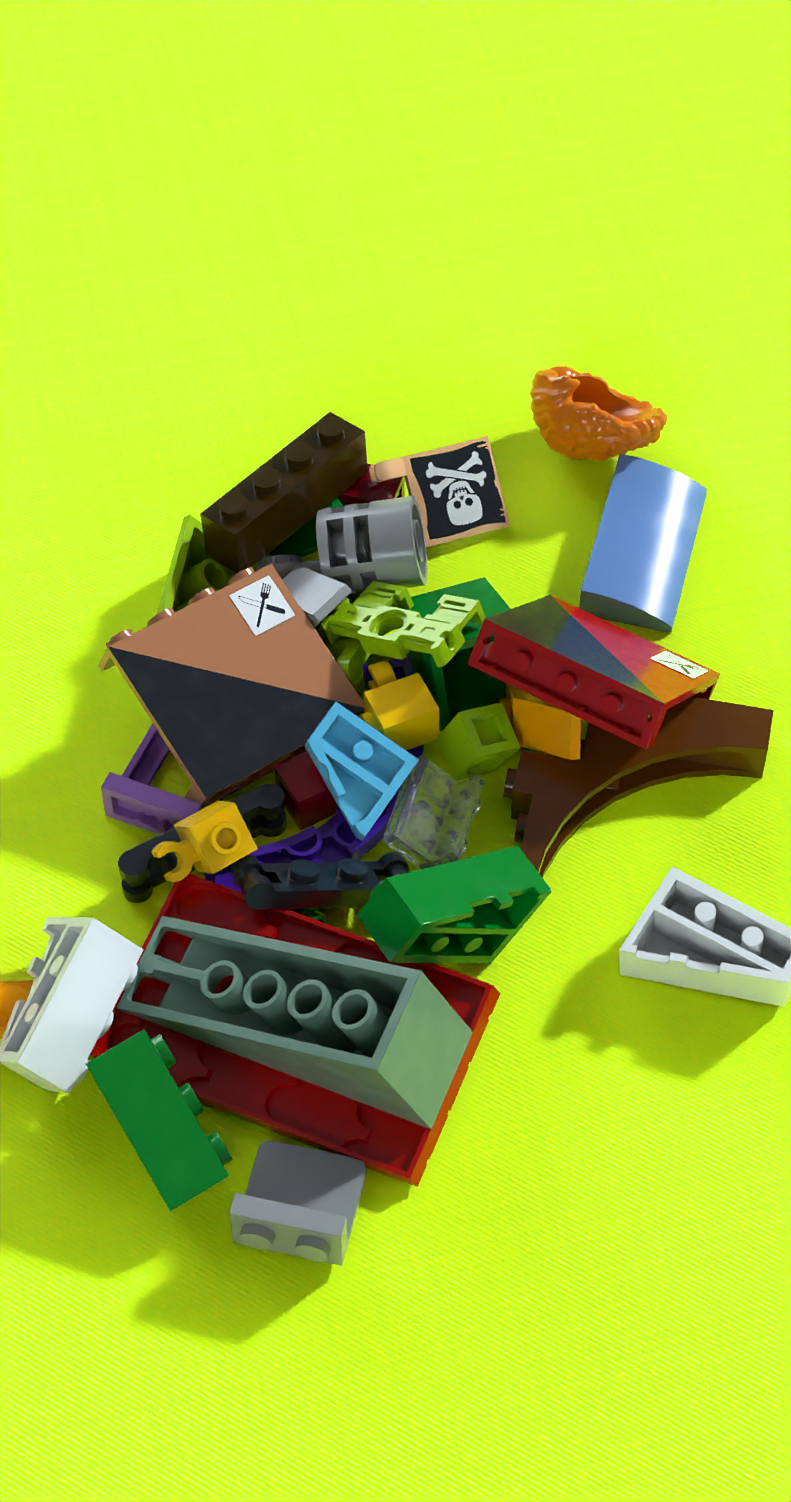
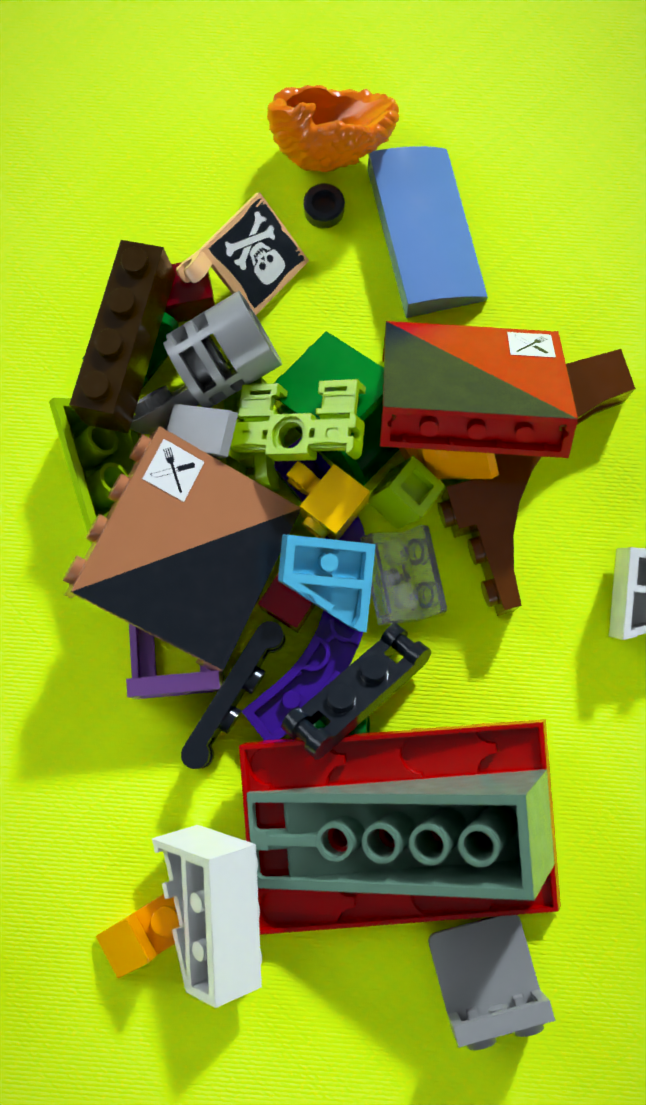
camera: 25 degrees left, 25 degrees up
(160, 1118) = (343, 979): green wedge -> none
(208, 841) = (253, 713): yellow brick -> none
(455, 909) = (482, 678): green wedge -> none
(553, 487) = (324, 205): none -> black tile

